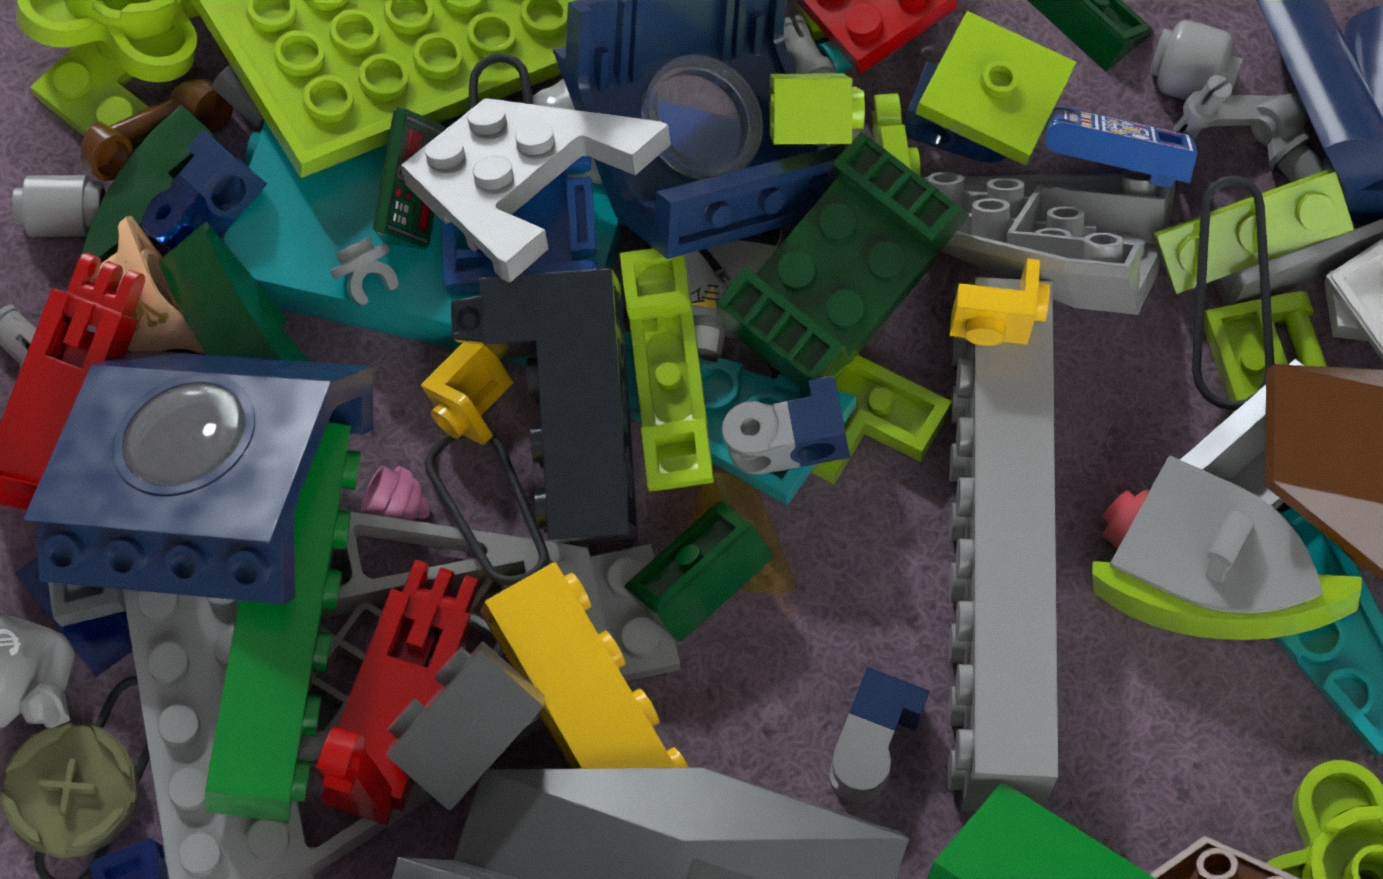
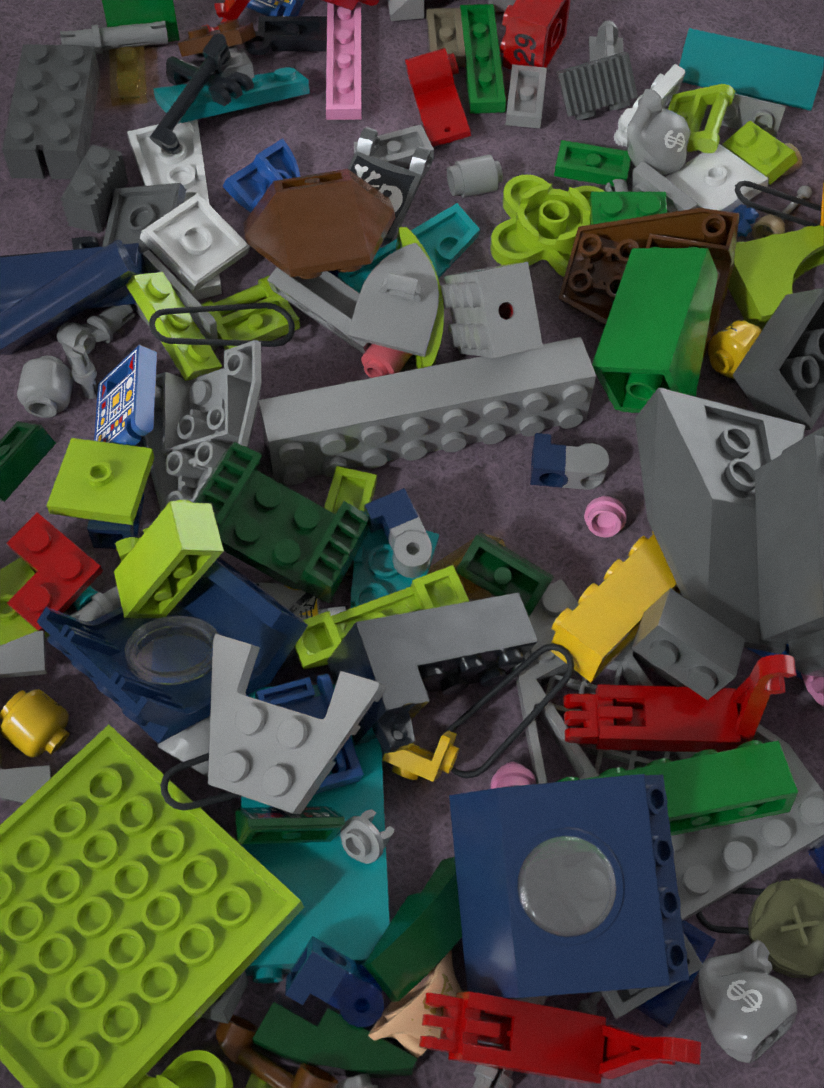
camera: 105 degrees left, 5 degrees down
(771, 763) = (605, 516): none -> bright pink plate
(999, 314) = (294, 399): yellow bracket -> none
(1133, 643) = (492, 311): none -> light grey brick

